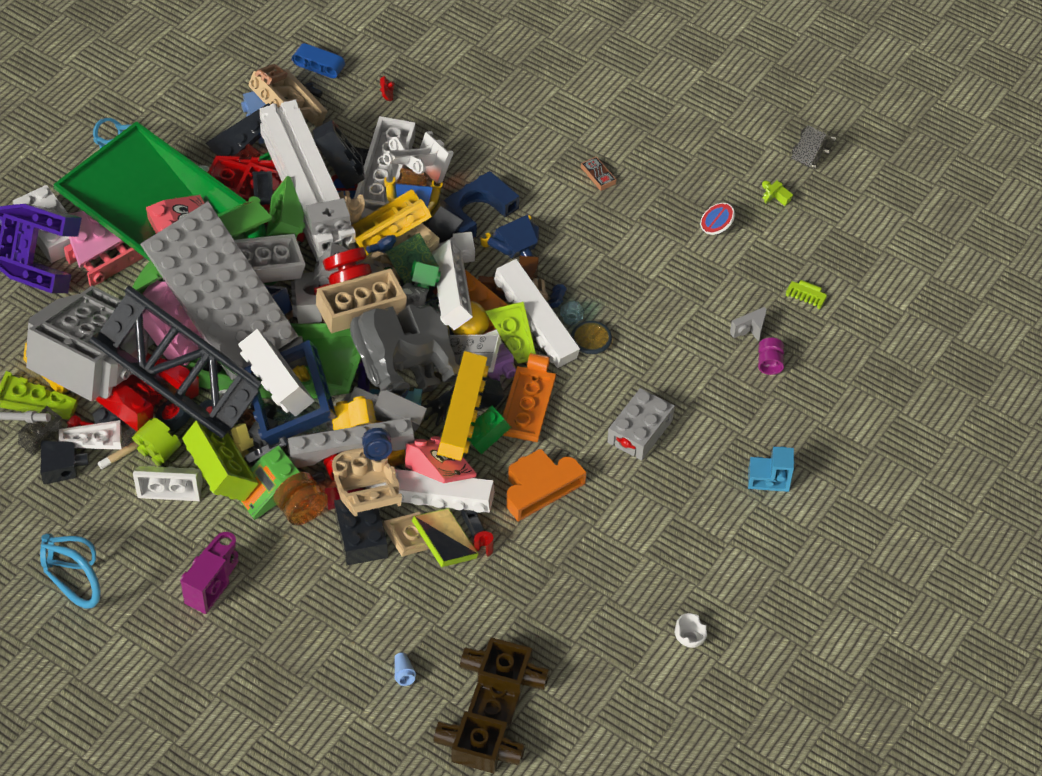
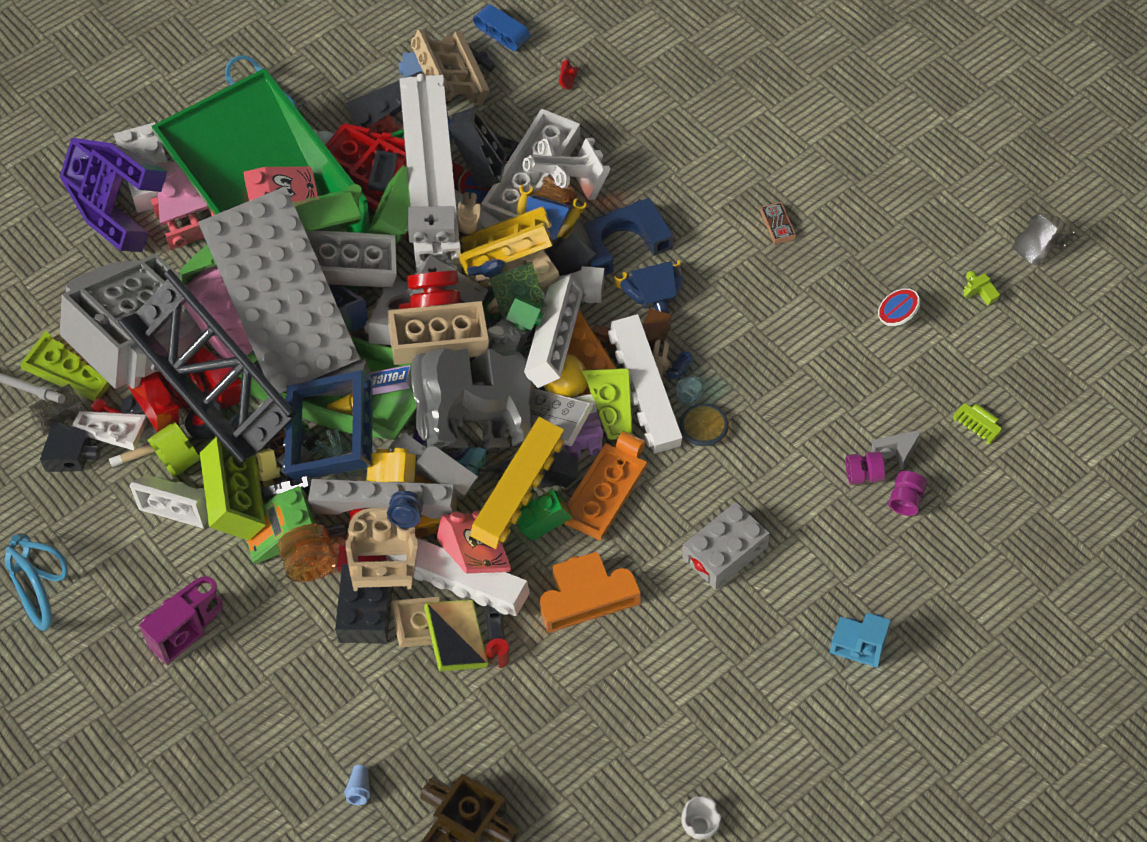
camera: 20 degrees right, 5 degrees up
(273, 76) = (440, 39): nougat tile -> none
(275, 373) = (311, 402): white brick -> none
(331, 347) = (391, 379): none -> tile
(732, 343) = (873, 467): none -> magenta wheel

